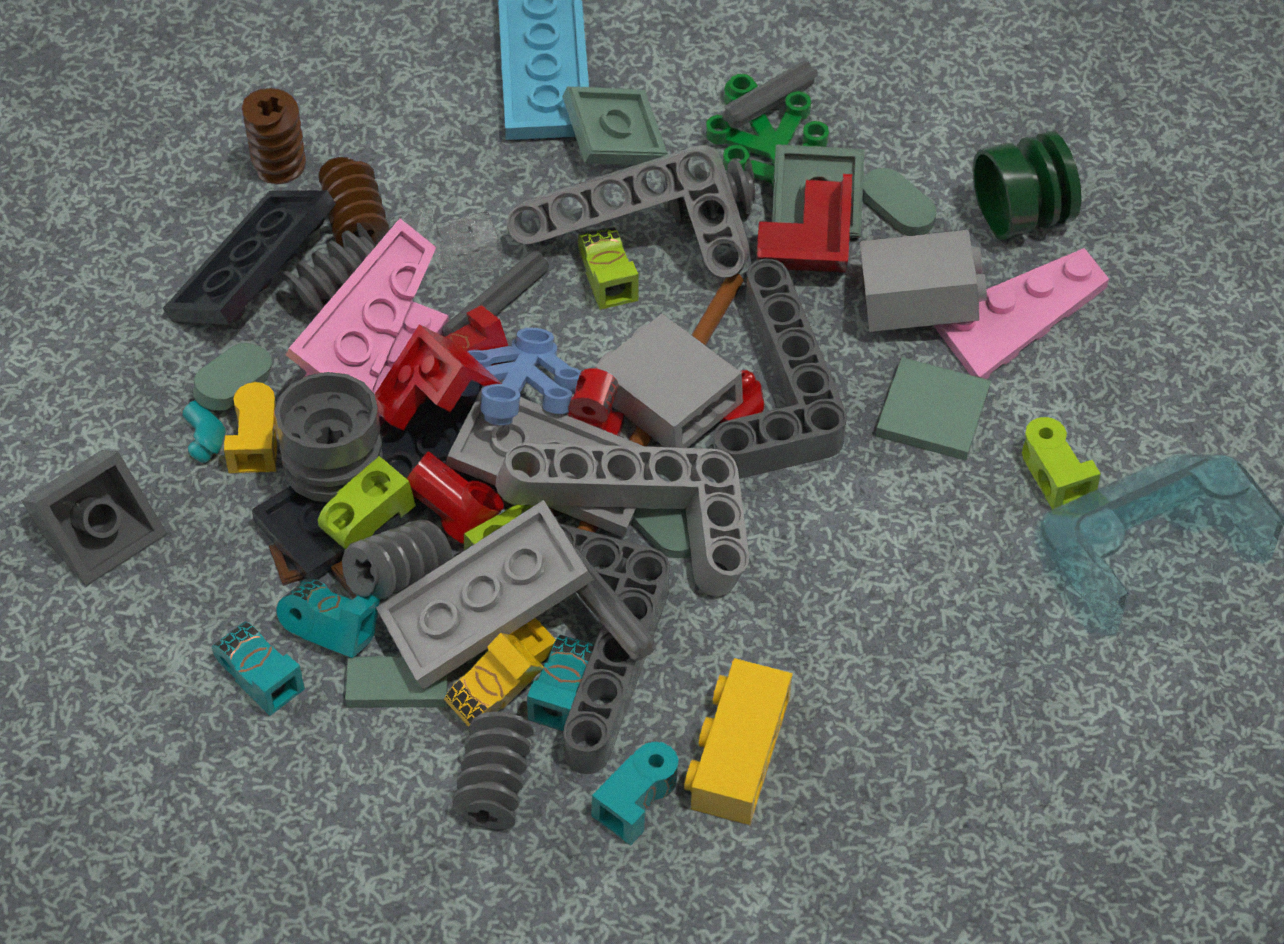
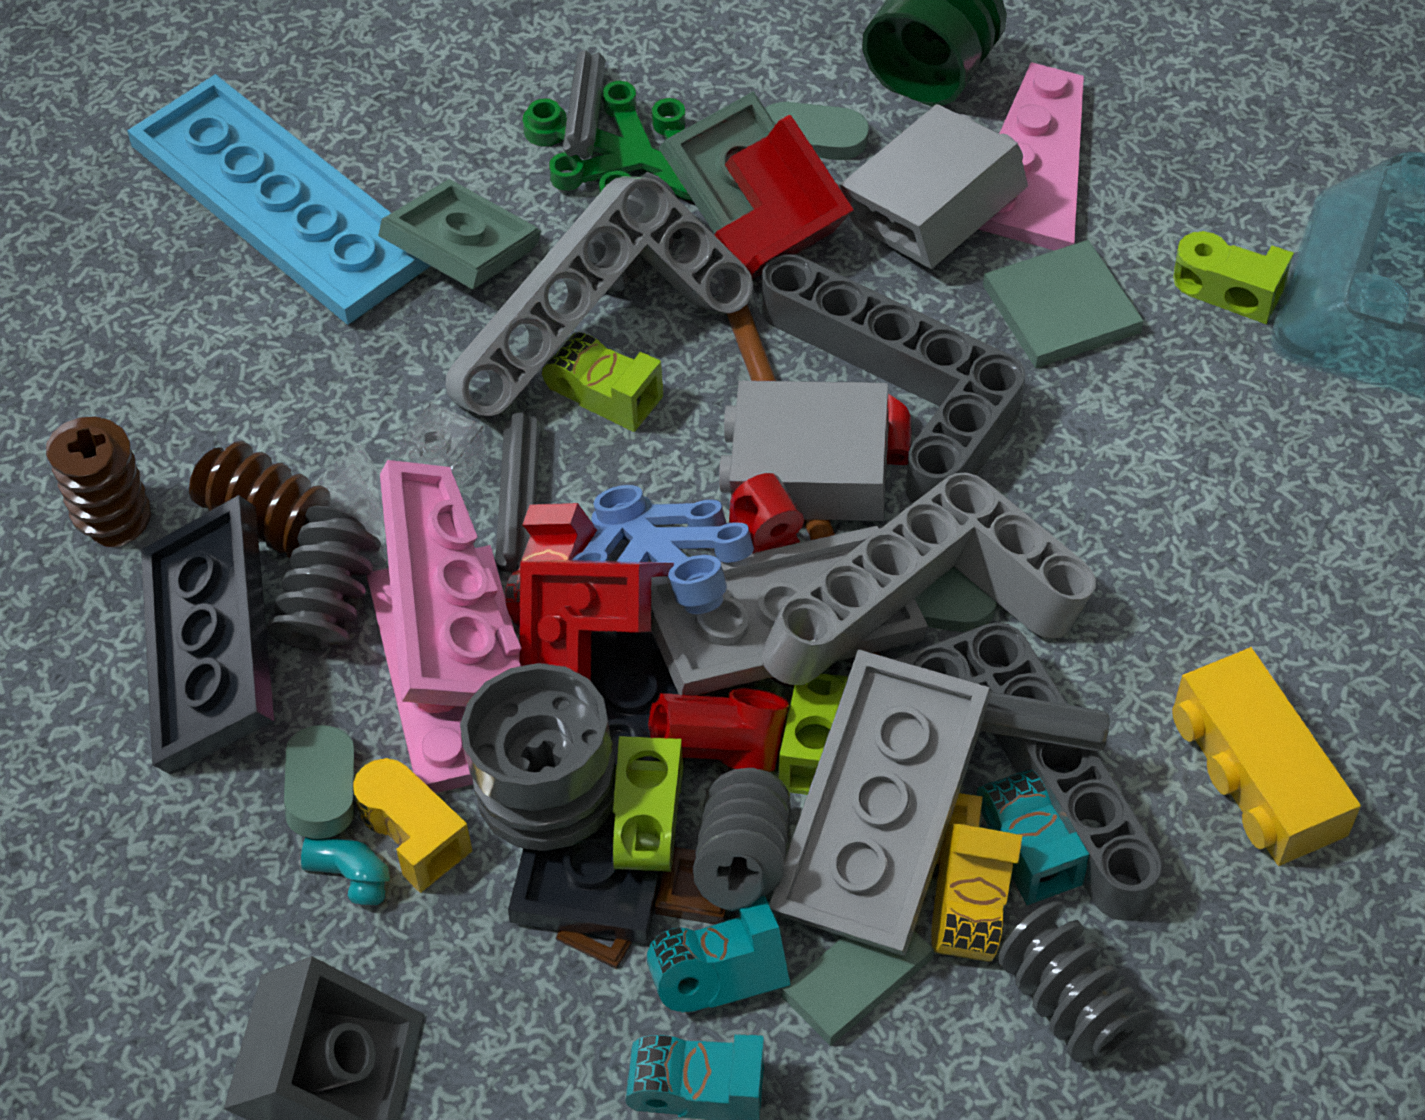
camera: 40 degrees left, 0 degrees up
(633, 787) = (1219, 889): teal leg -> none

